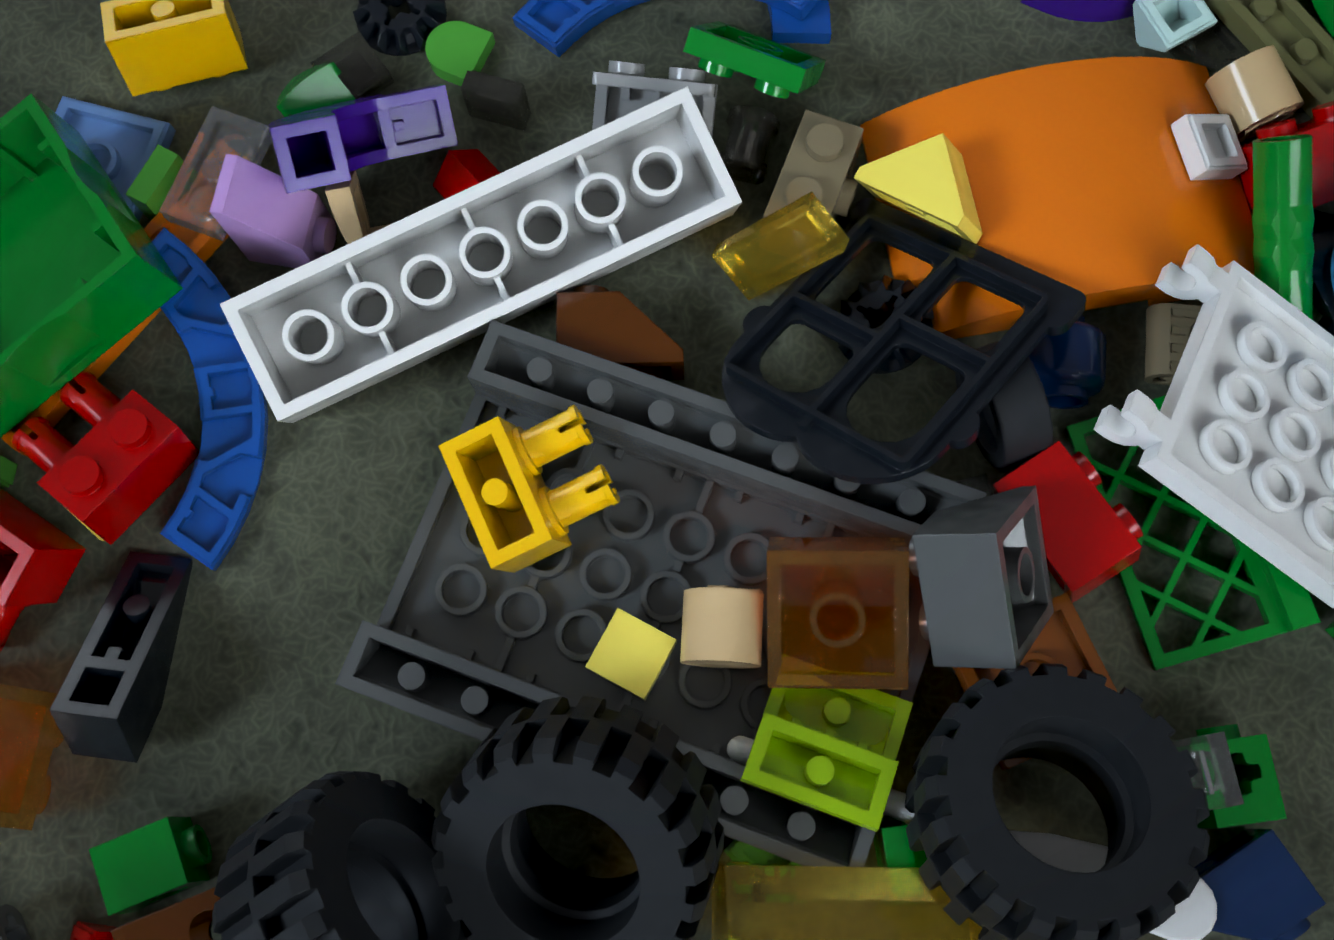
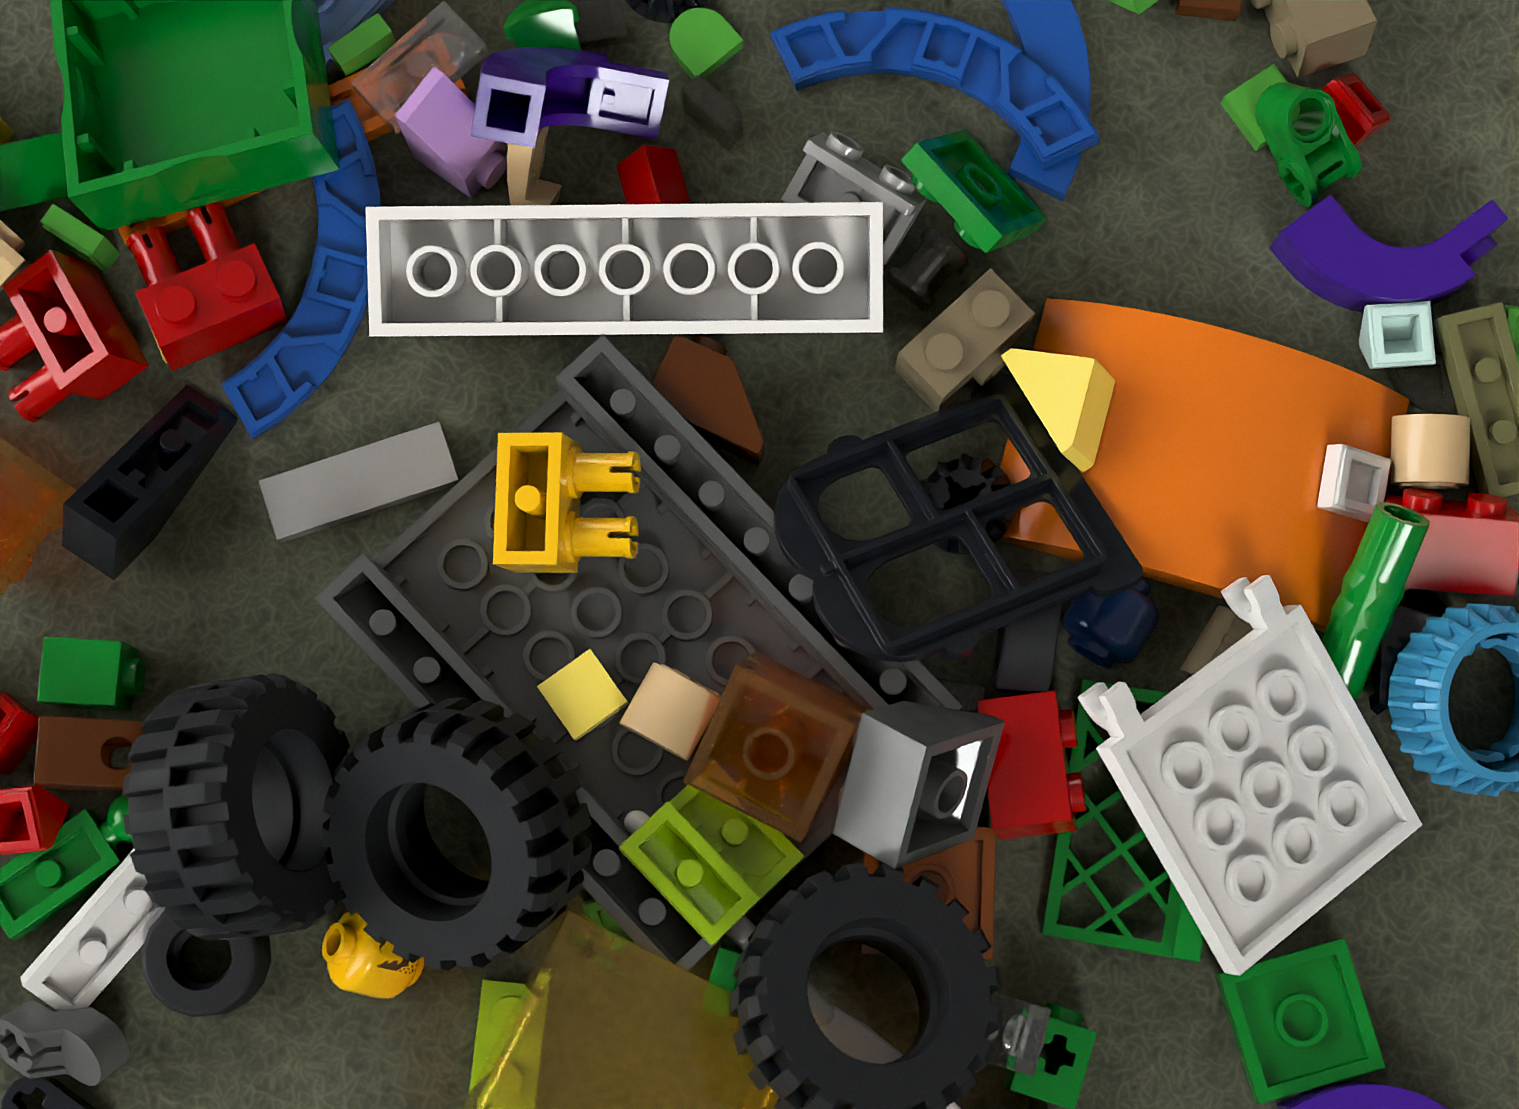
camera: 20 degrees right, 5 degrees up
(329, 563) = (359, 482): none -> light grey tile
(780, 246) = (900, 388): clear yellow tile -> none

